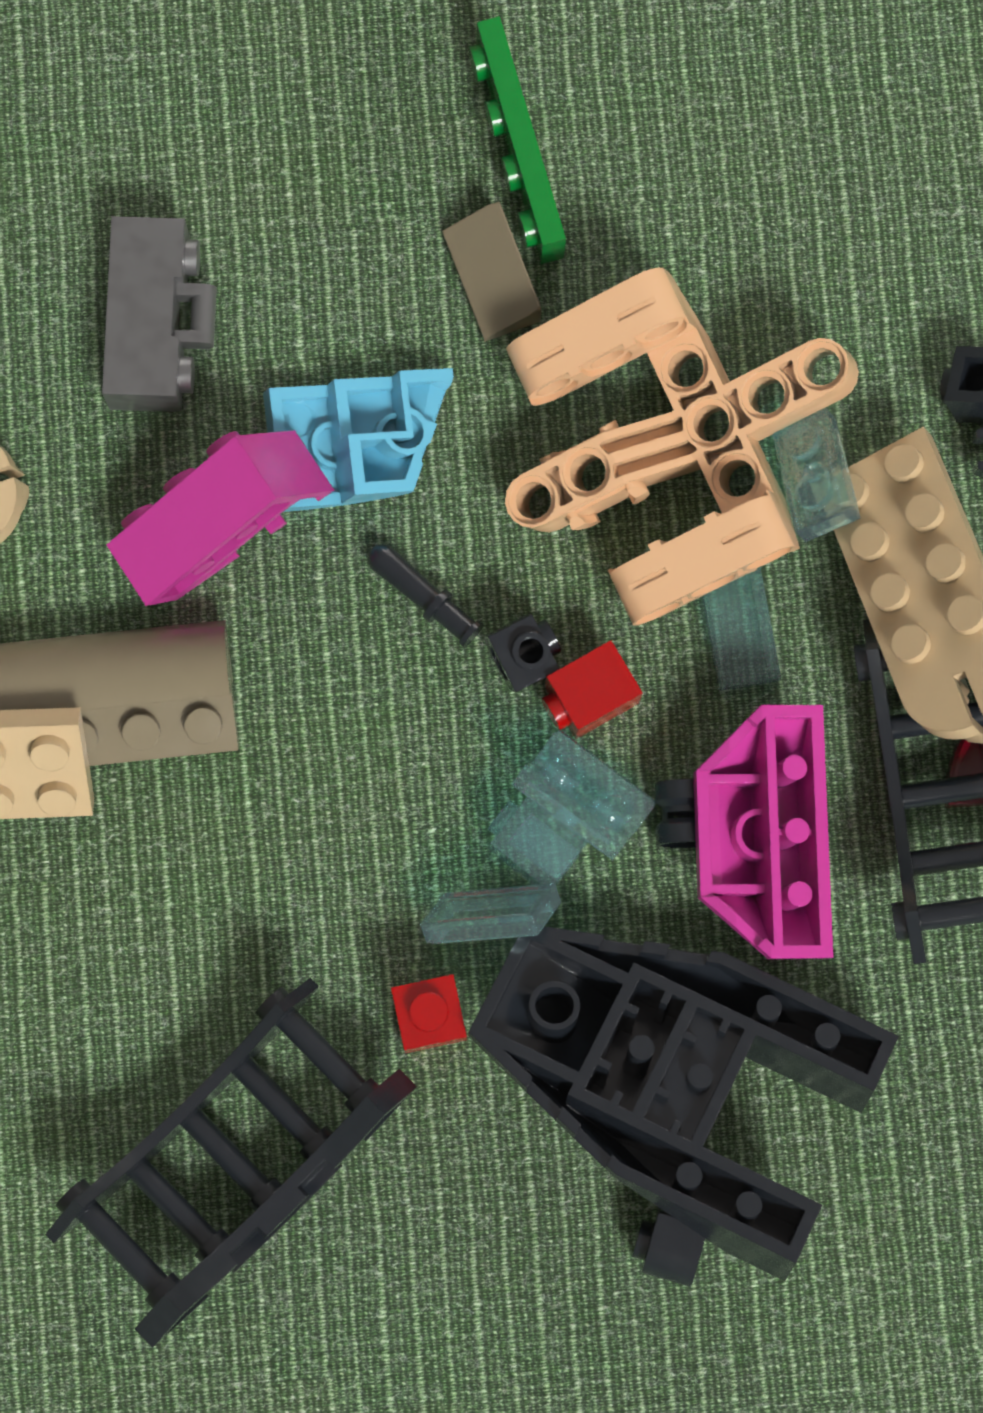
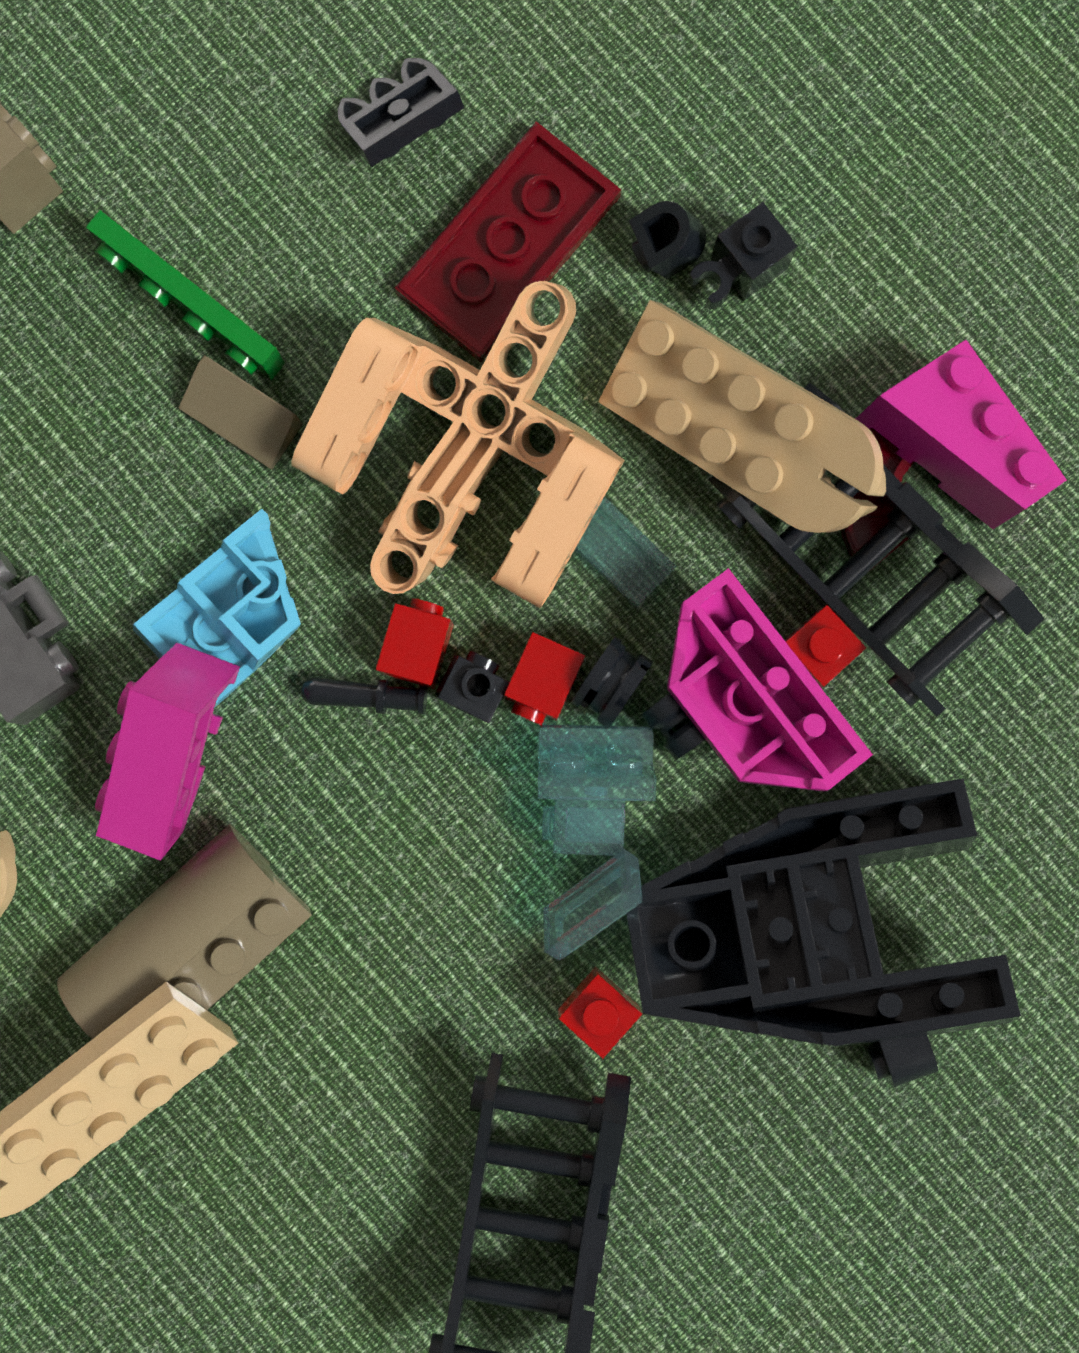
camera: 30 degrees left, 5 degrees up
(501, 580) = (415, 643): none -> red brick
(649, 735) = (612, 682): none -> black wheel
(816, 475) = (595, 395): clear light blue plate -> none
(822, 110) = (398, 110): none -> black plate
(839, 285) = (506, 238): none -> dark red tile
(860, 838) = (825, 645): none -> red brick

